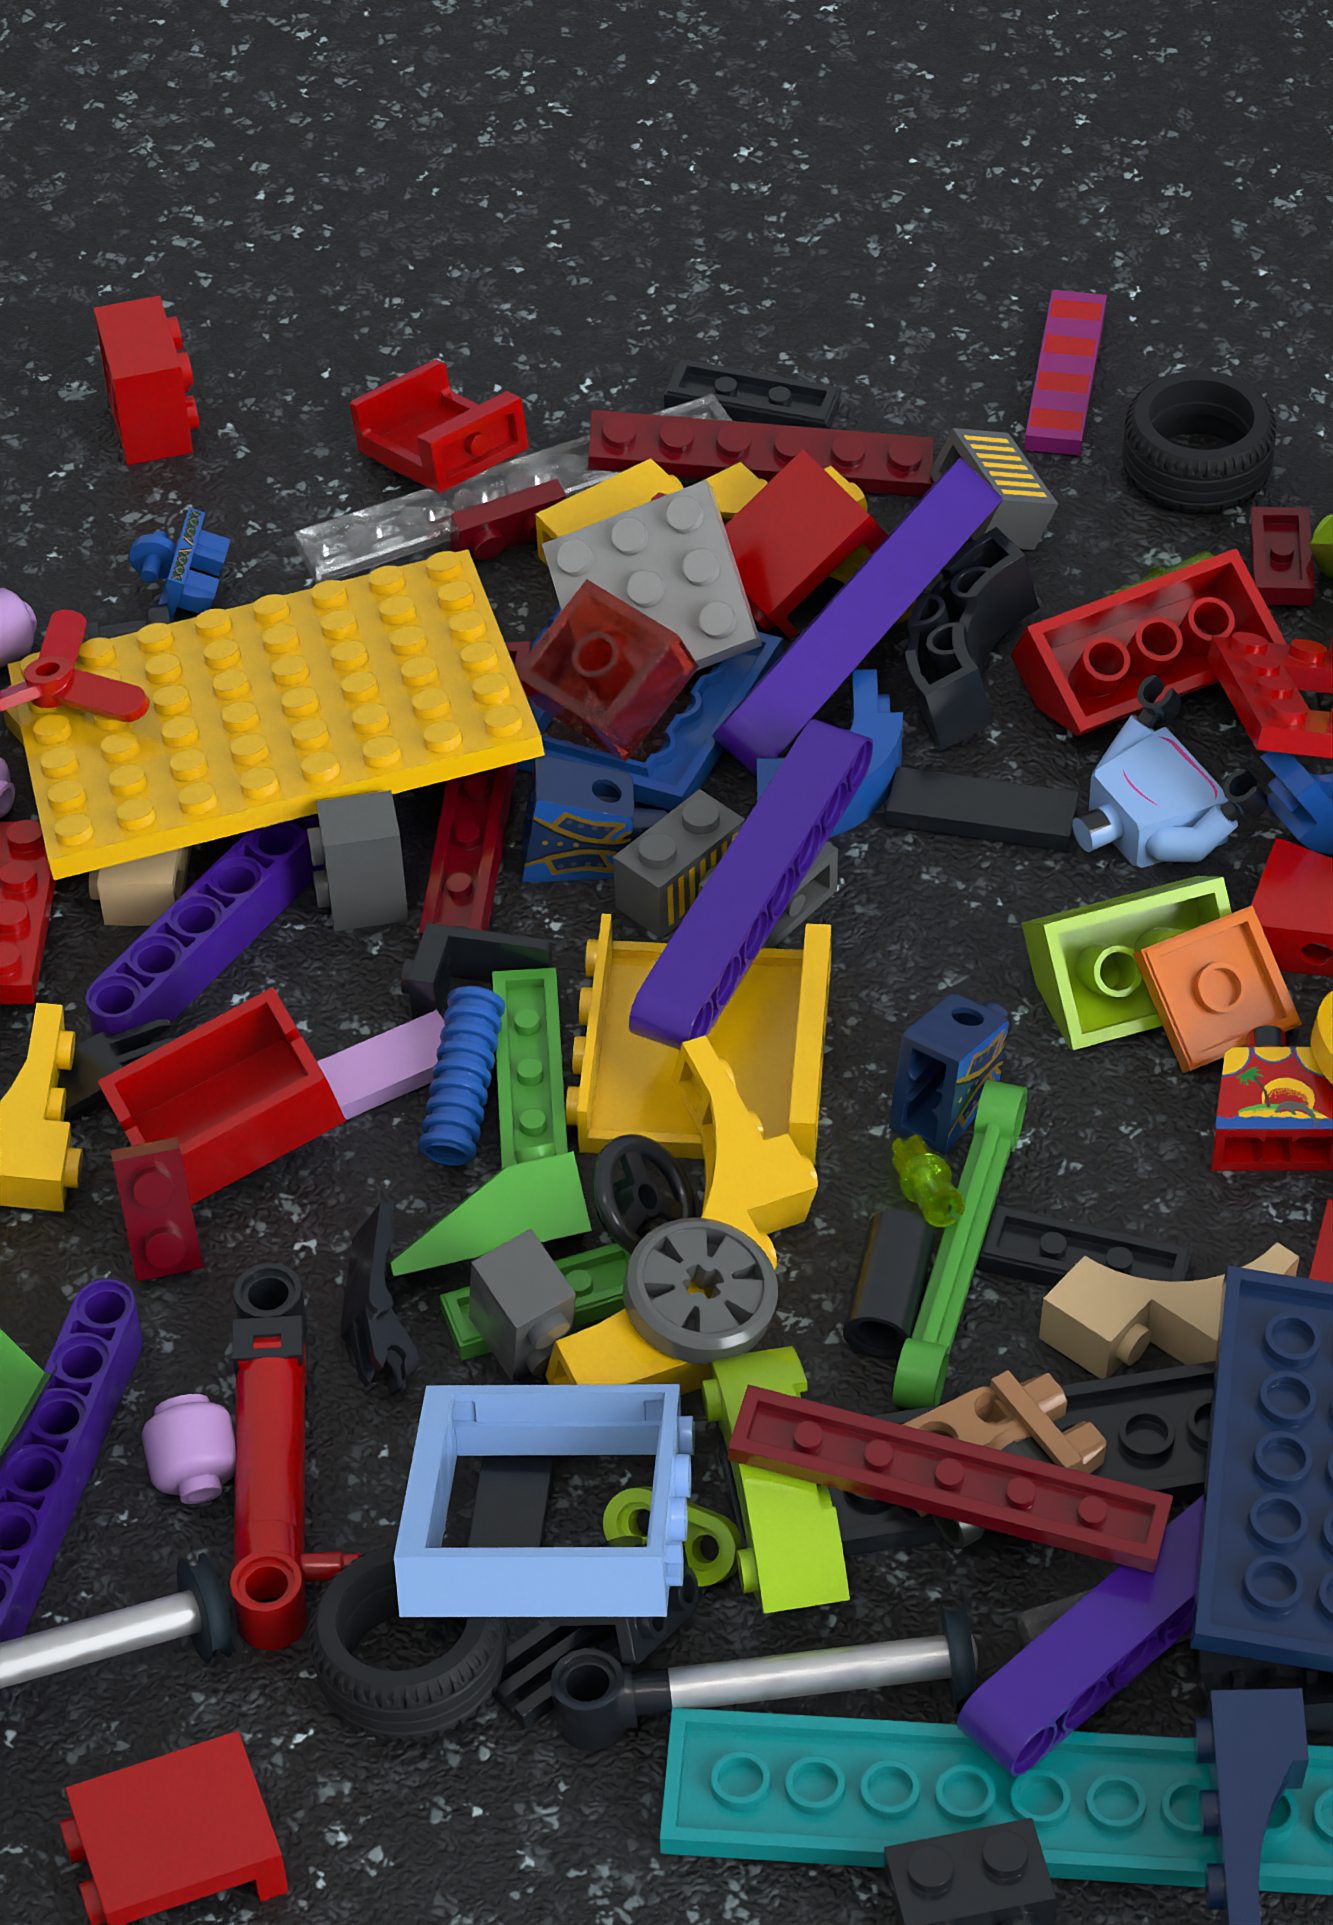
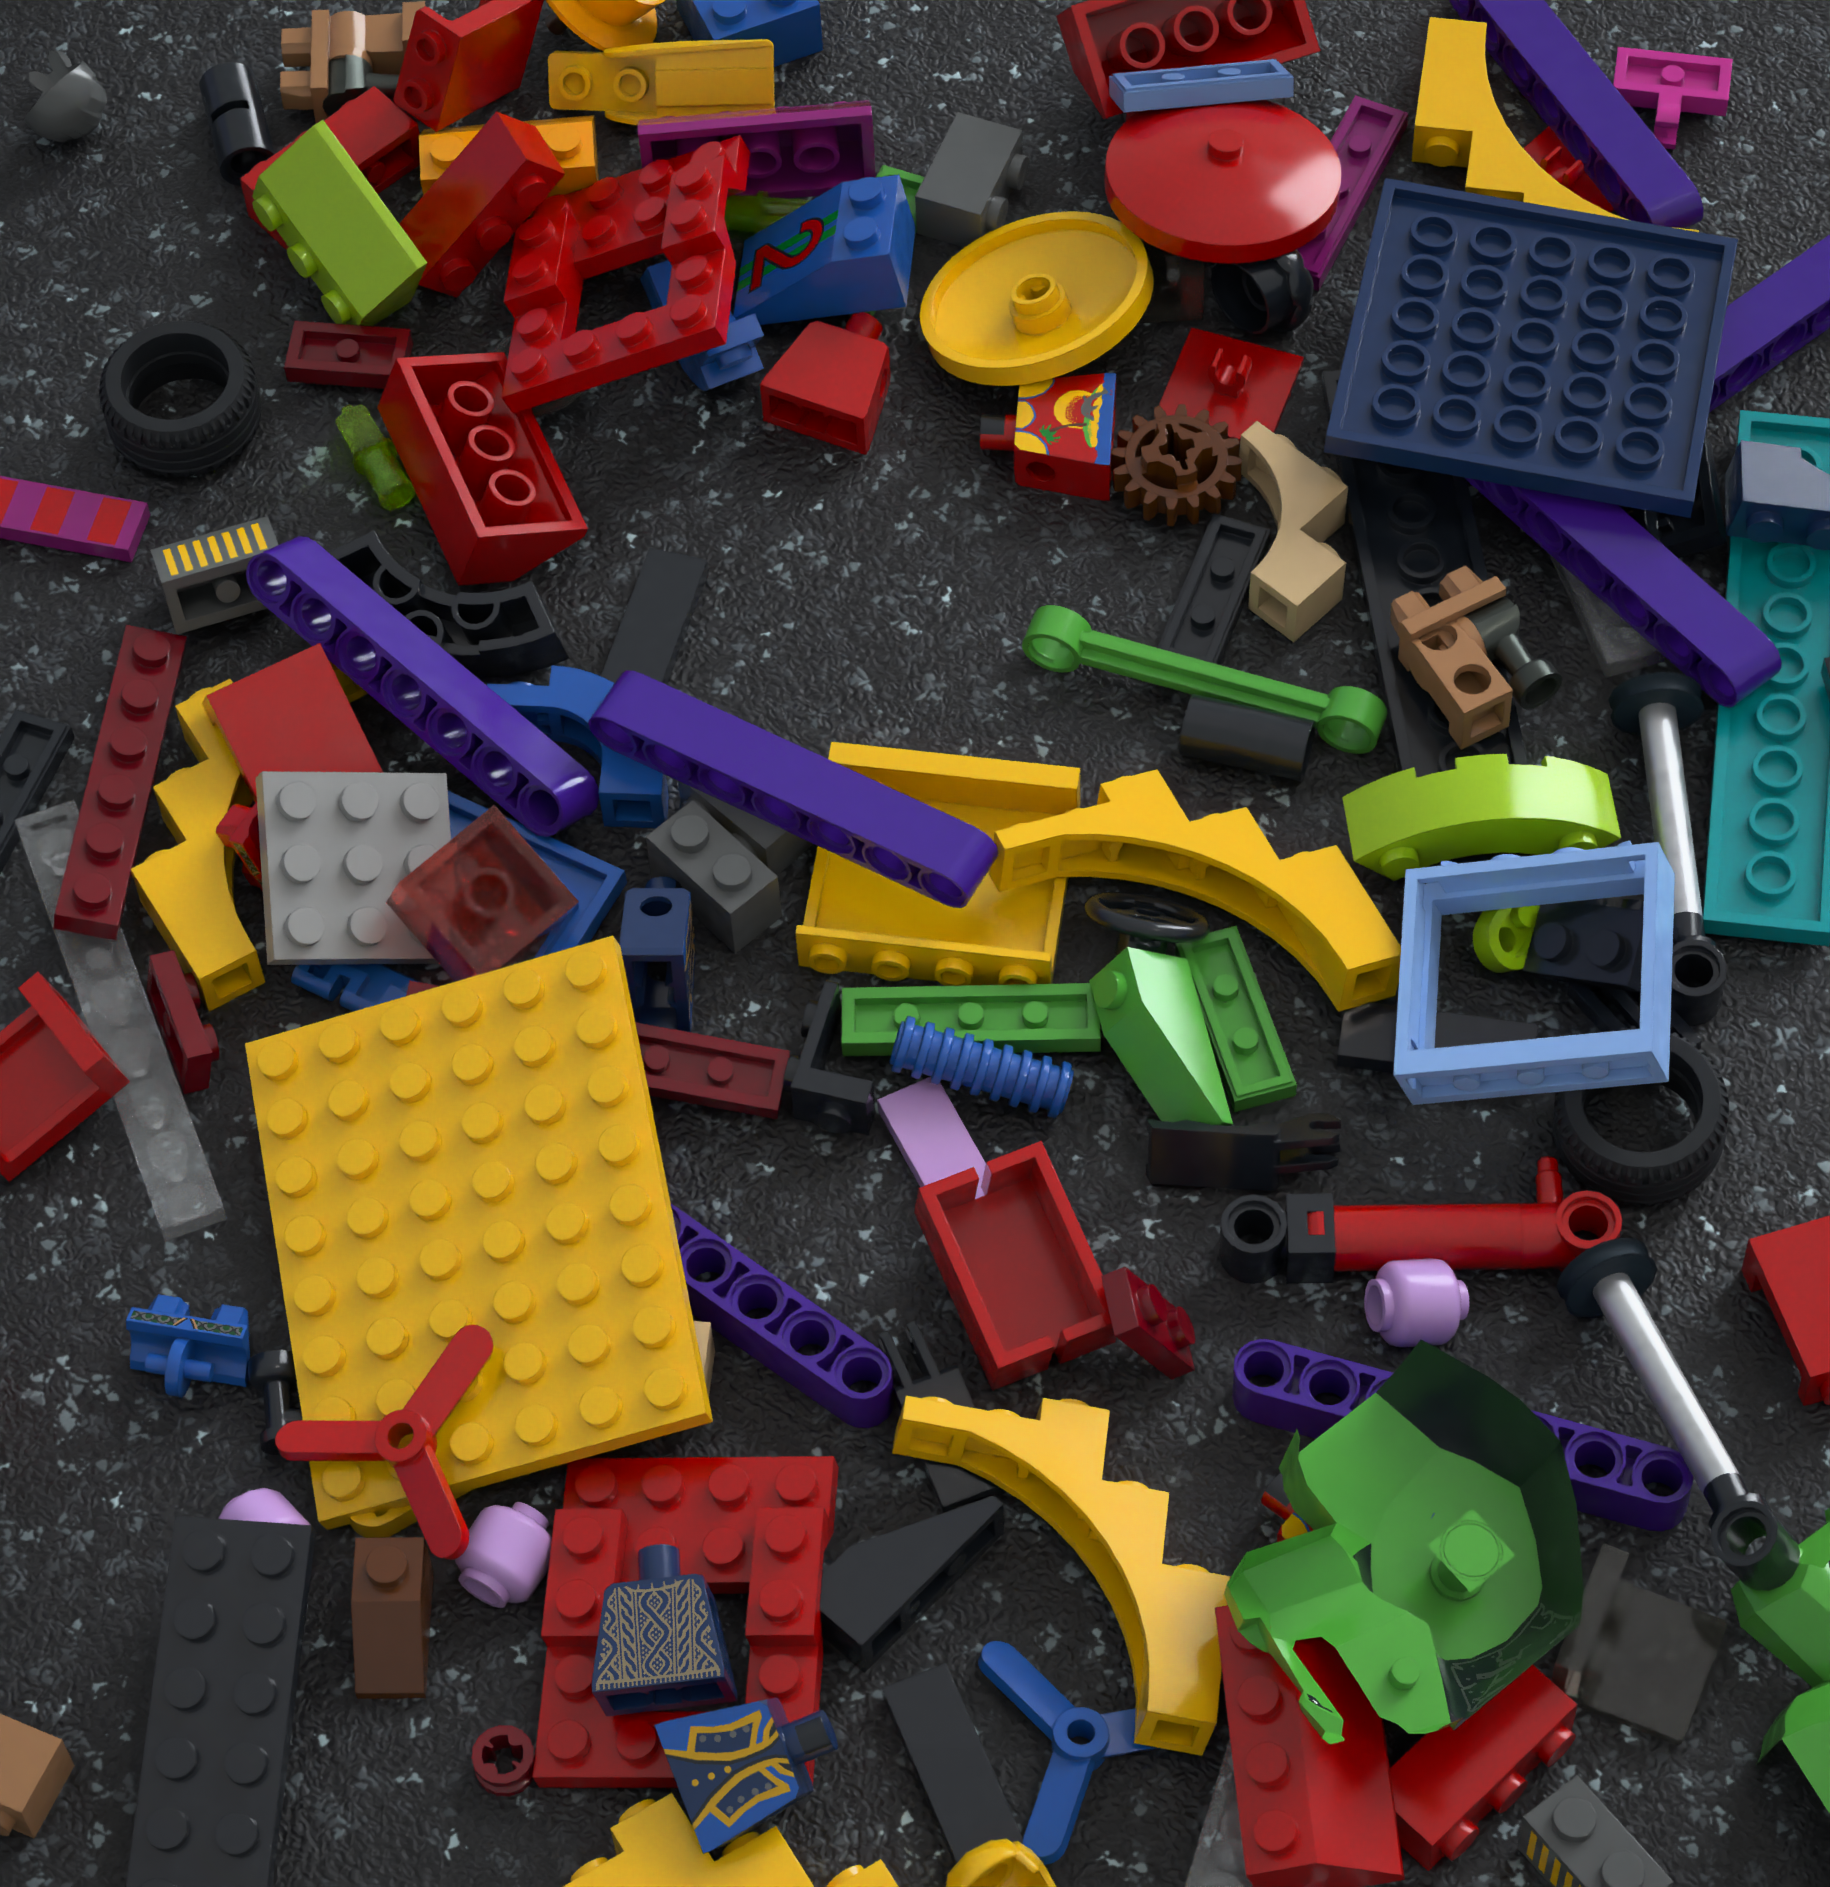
camera: 85 degrees left, 10 degrees up
(360, 859) = (698, 1144): dark grey brick -> none
(520, 1304) = (1301, 997): dark grey brick -> none
(690, 1324) = (1284, 880): dark grey wheel -> none
(926, 1180) = (1132, 698): clear neon green axle -> none
(949, 1054) = (1010, 664): dark blue torso -> none
(950, 1478) = (1537, 660): dark red plate -> none
(1088, 962) = (872, 517): lime slope -> none
(1157, 796) = (673, 482): light blue torso -> none
(1216, 987) = (929, 455): orange tile -> none
(1247, 1204) = (1176, 465): none -> reddish brown gear

